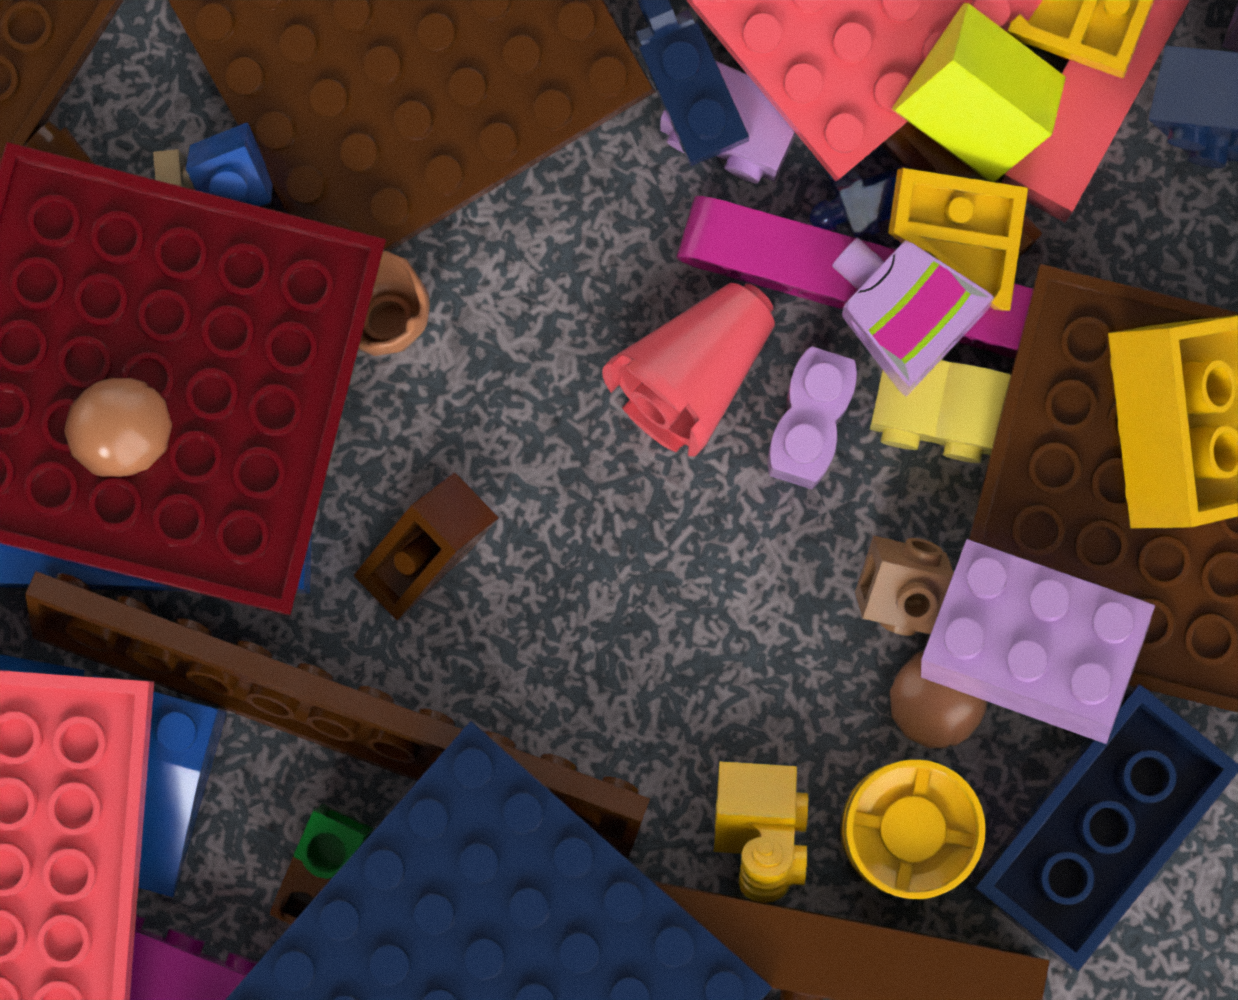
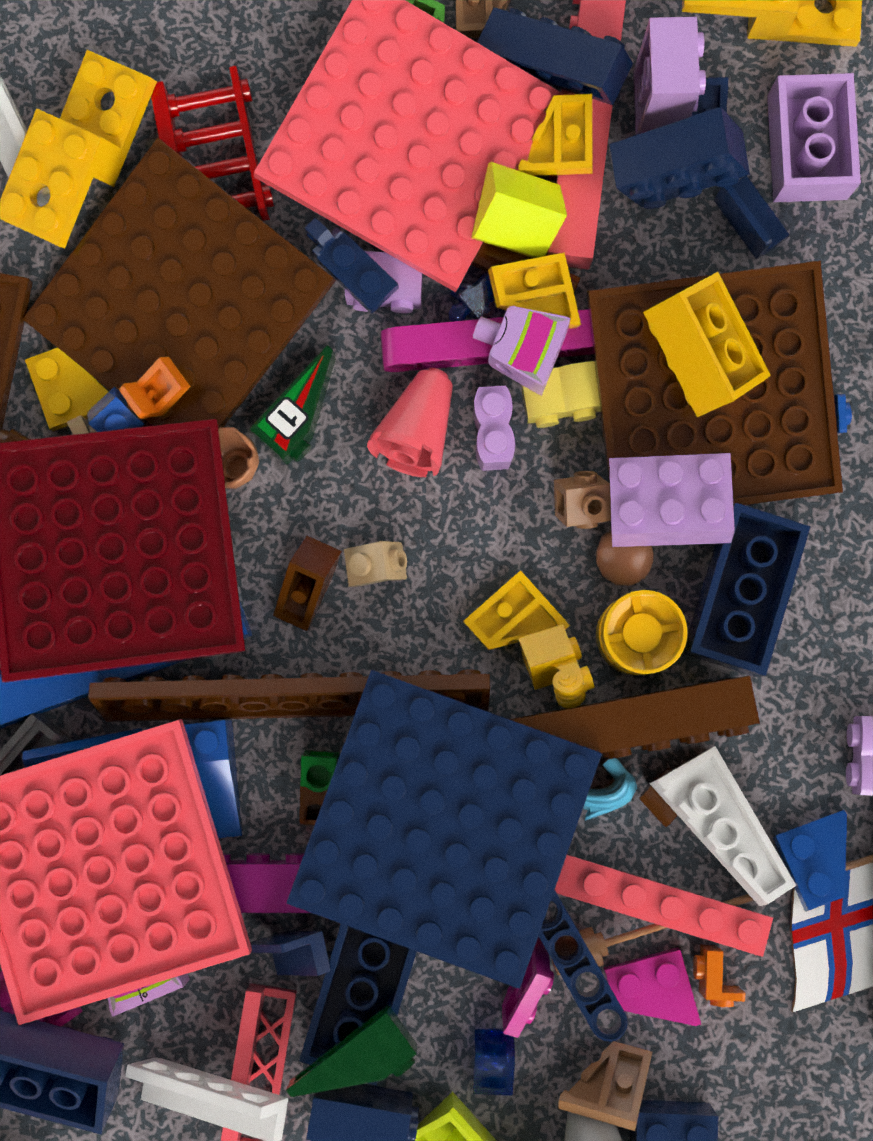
camera: 25 degrees left, 0 degrees up
(118, 427) = (104, 582): nougat hair -> none
(167, 92) = (63, 387): none -> yellow wing
(309, 156) = (155, 390): none -> orange bracket
(508, 277) = (293, 417): none -> slope
(544, 557) = (375, 563): none -> tan bracket
(727, 720) = (512, 614): none -> yellow wing

